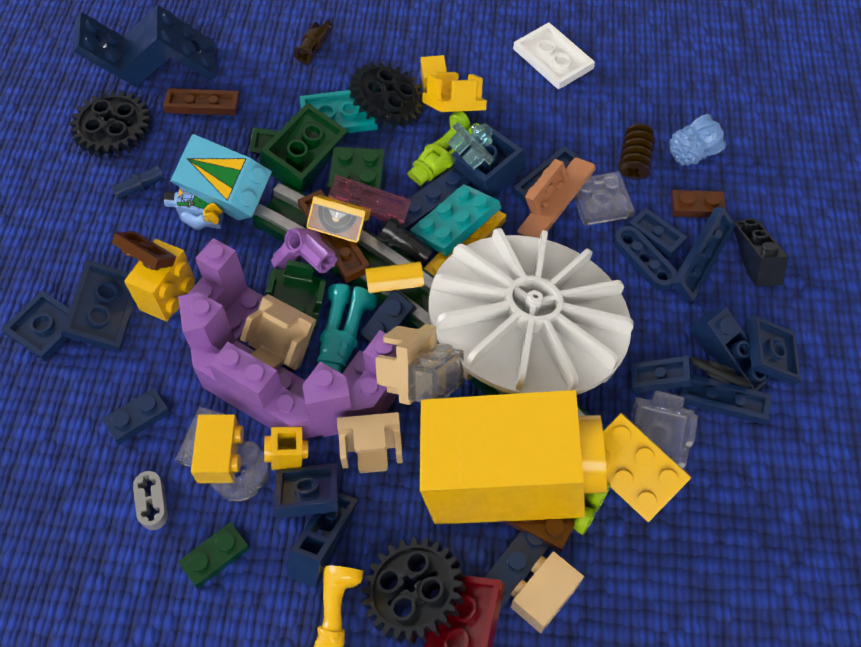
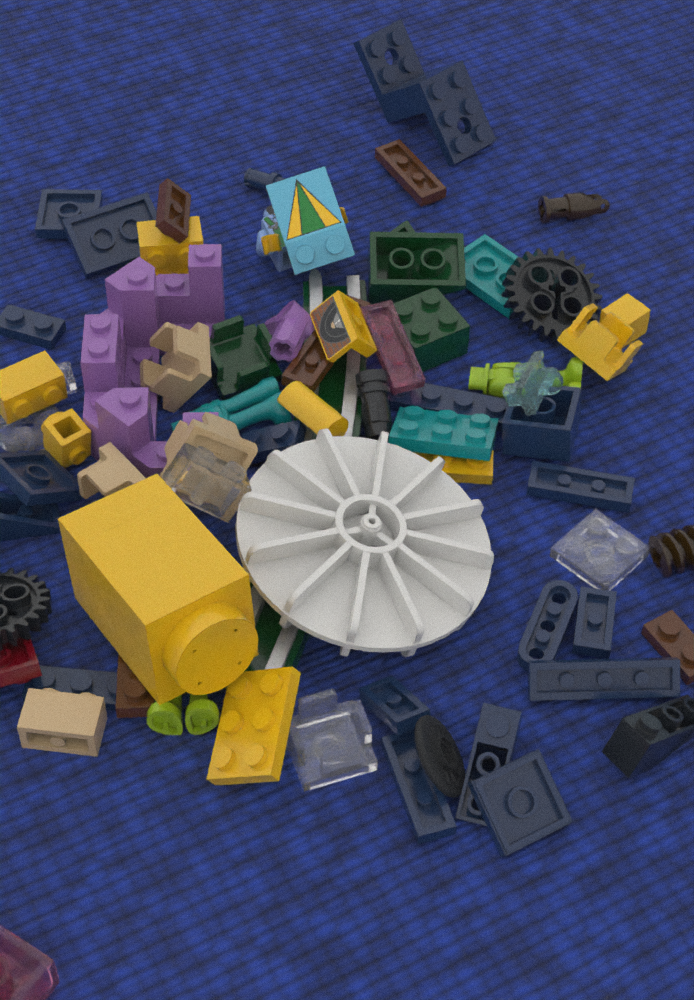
camera: 55 degrees right, 10 degrees down
(111, 124) = (305, 135): black gear -> none
(553, 194) = (550, 492): nougat bracket -> none

